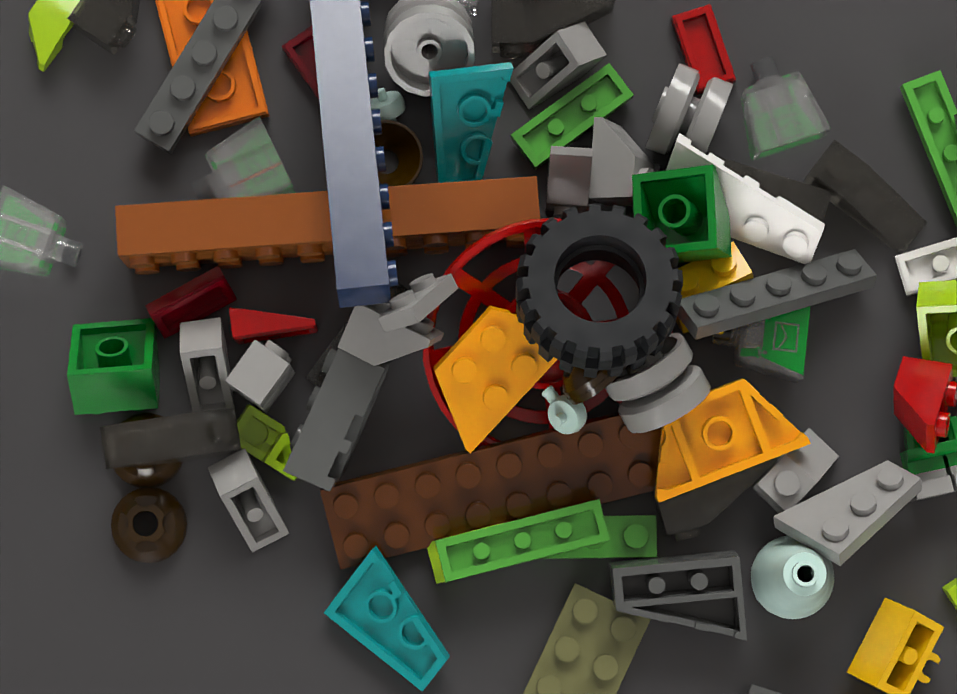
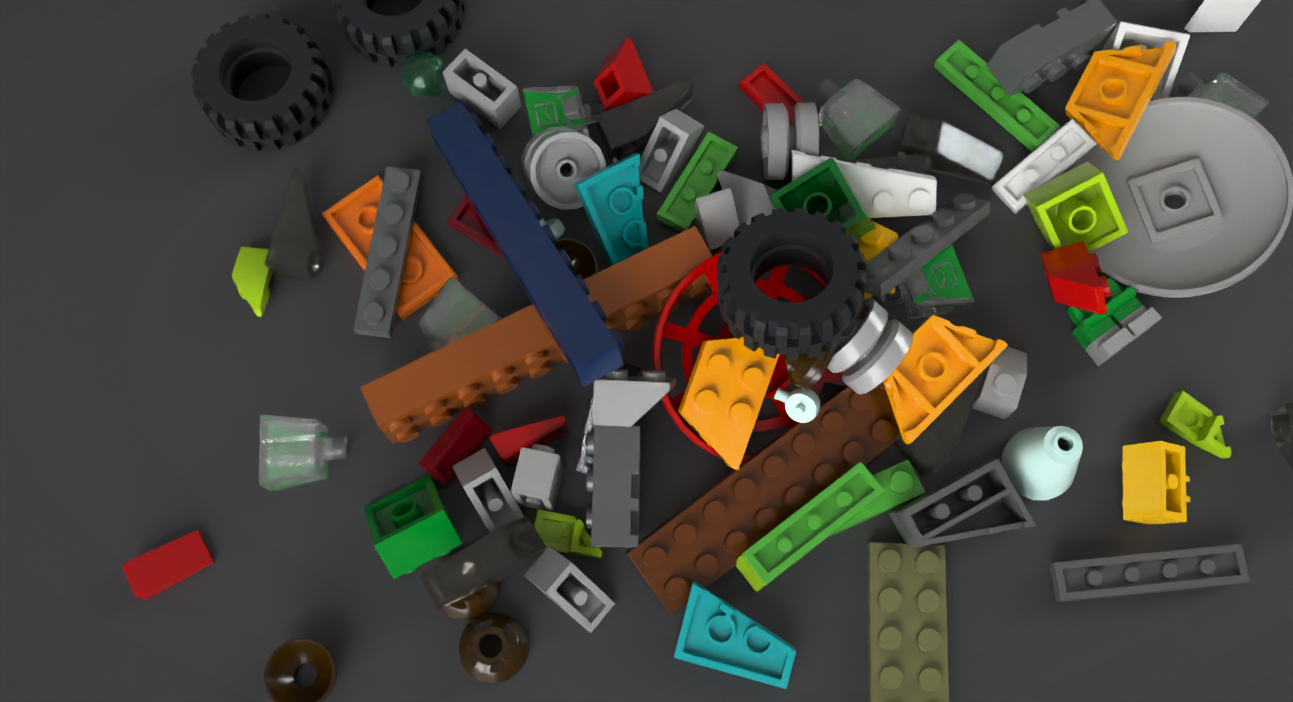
camera: 20 degrees left, 10 degrees down
(418, 302) = (644, 356): light grey plate -> none
(850, 512) = (1066, 386): light grey wing -> none

